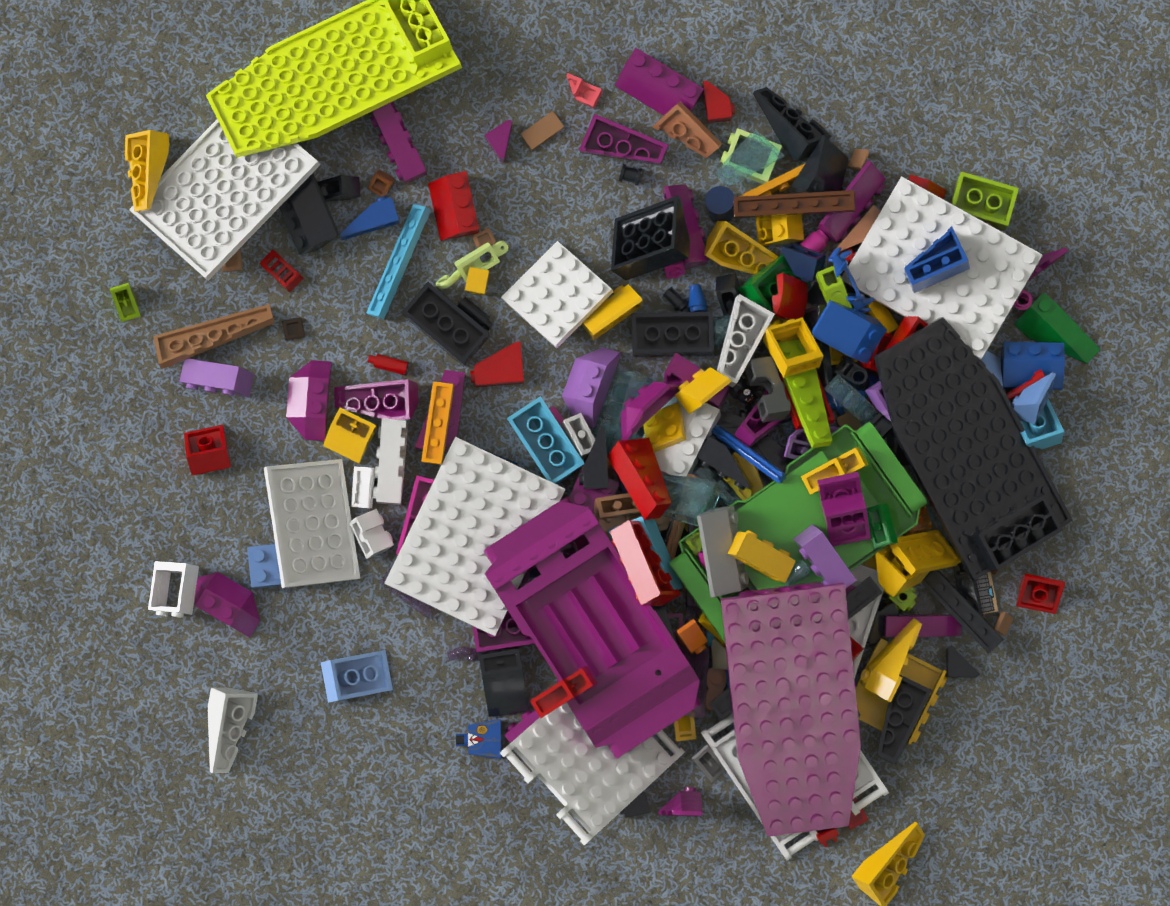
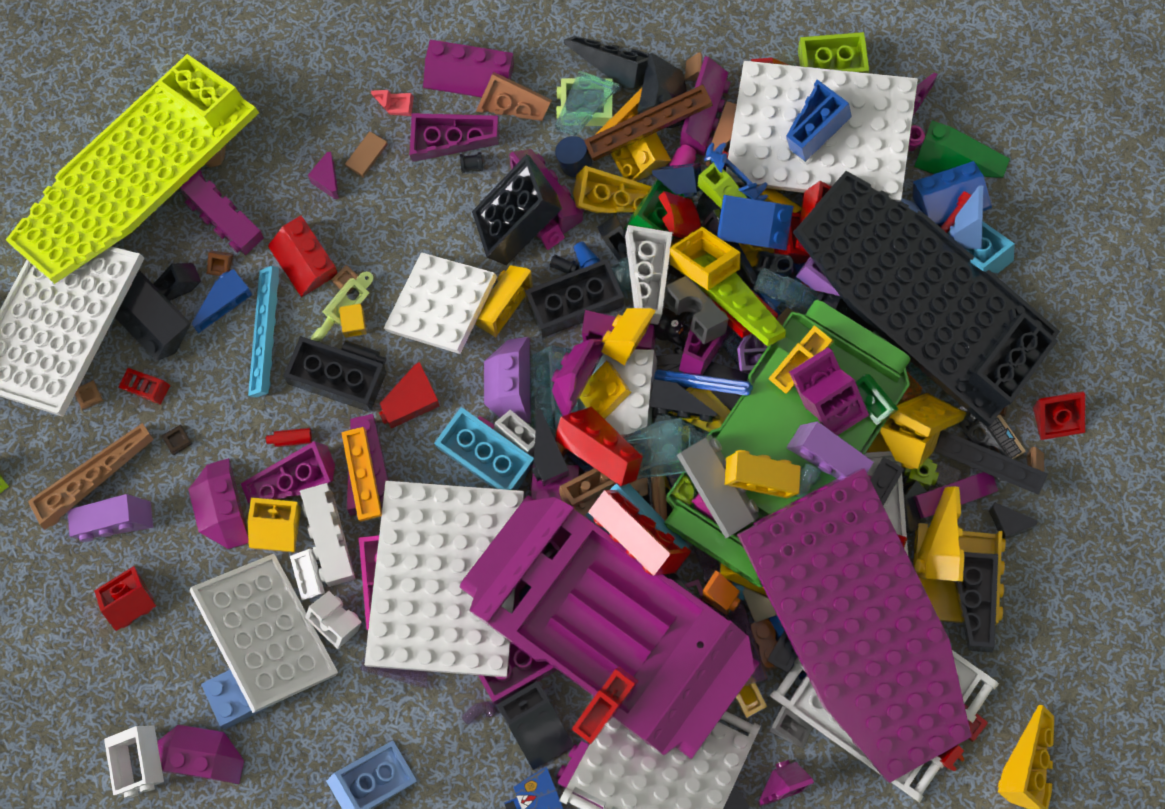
camera: 15 degrees left, 10 degrees down
(717, 104) = (532, 66): red slope -> none

